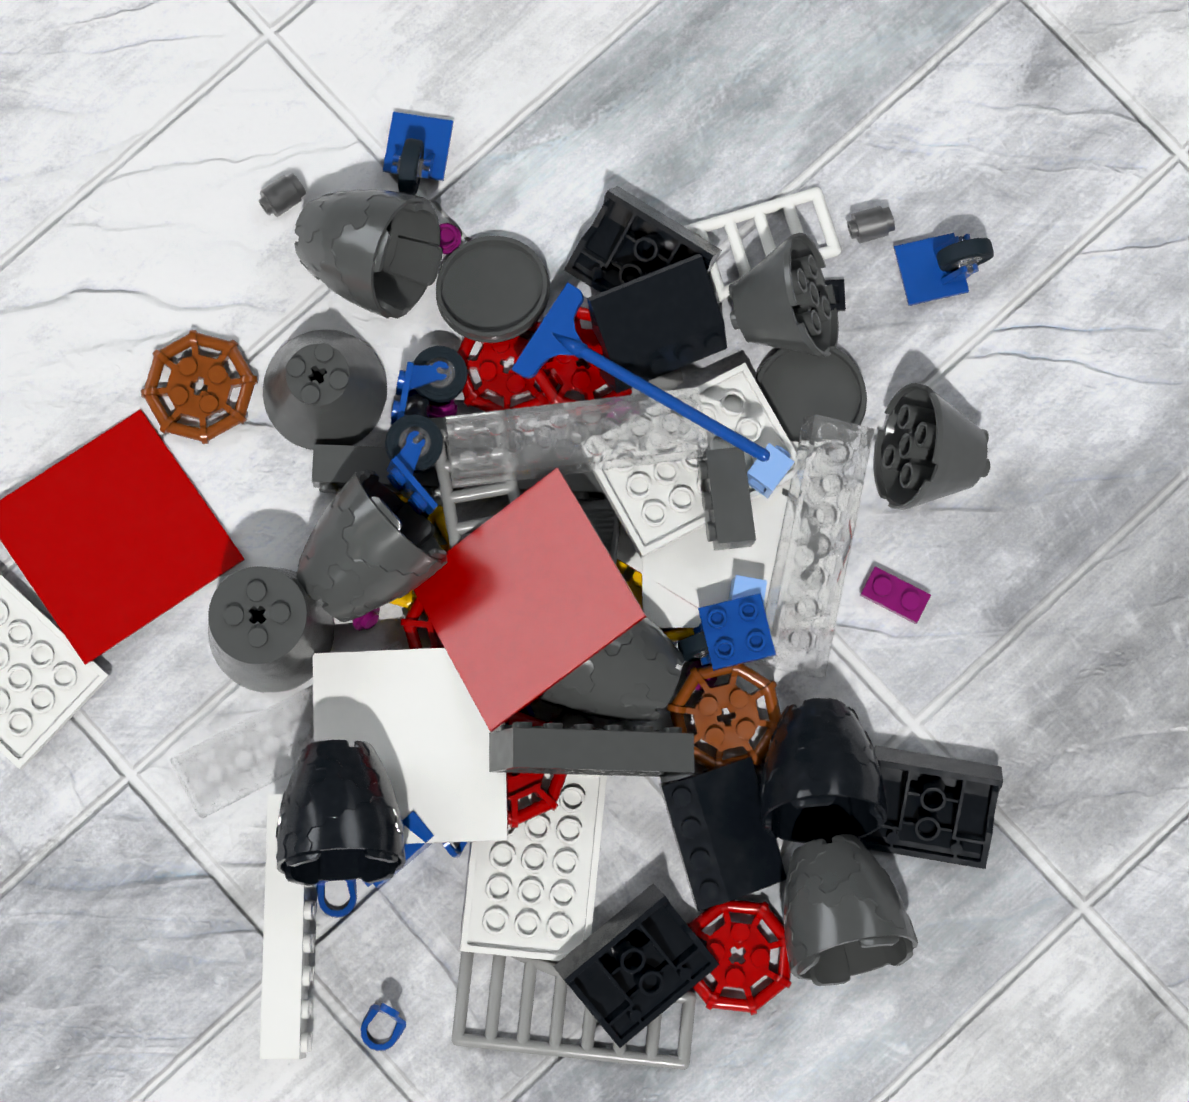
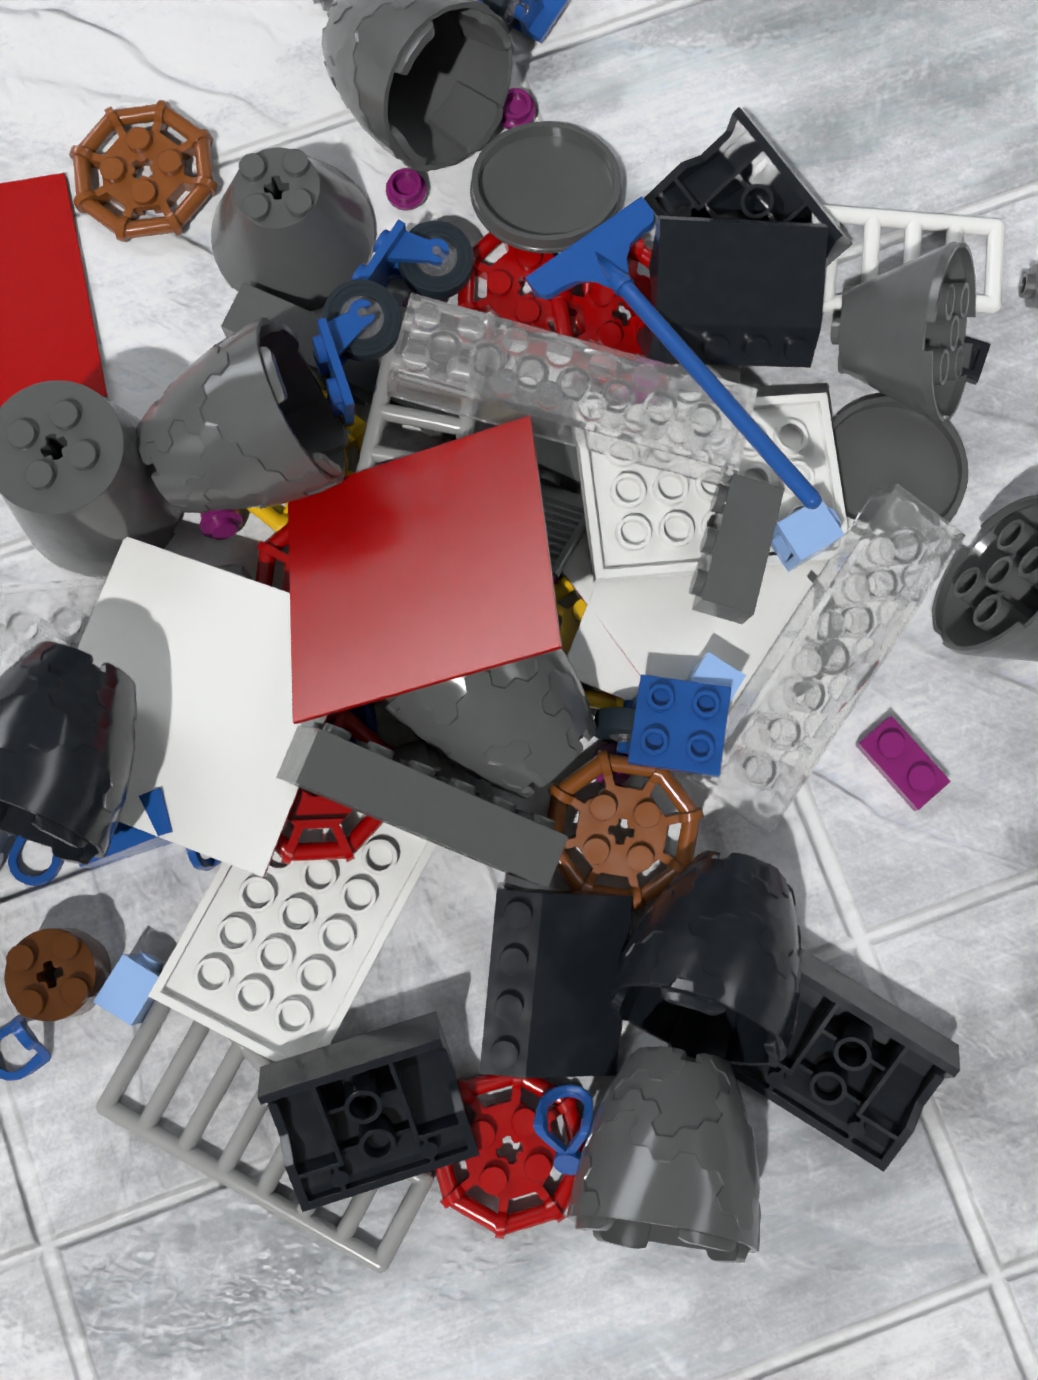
camera: 25 degrees right, 0 degrees up
(371, 964) = (31, 976): none -> reddish brown brick
(392, 329) = (406, 189): none -> magenta plate
(444, 952) = (129, 985): none -> light blue brick
(777, 941) = (565, 1158): none -> blue piece

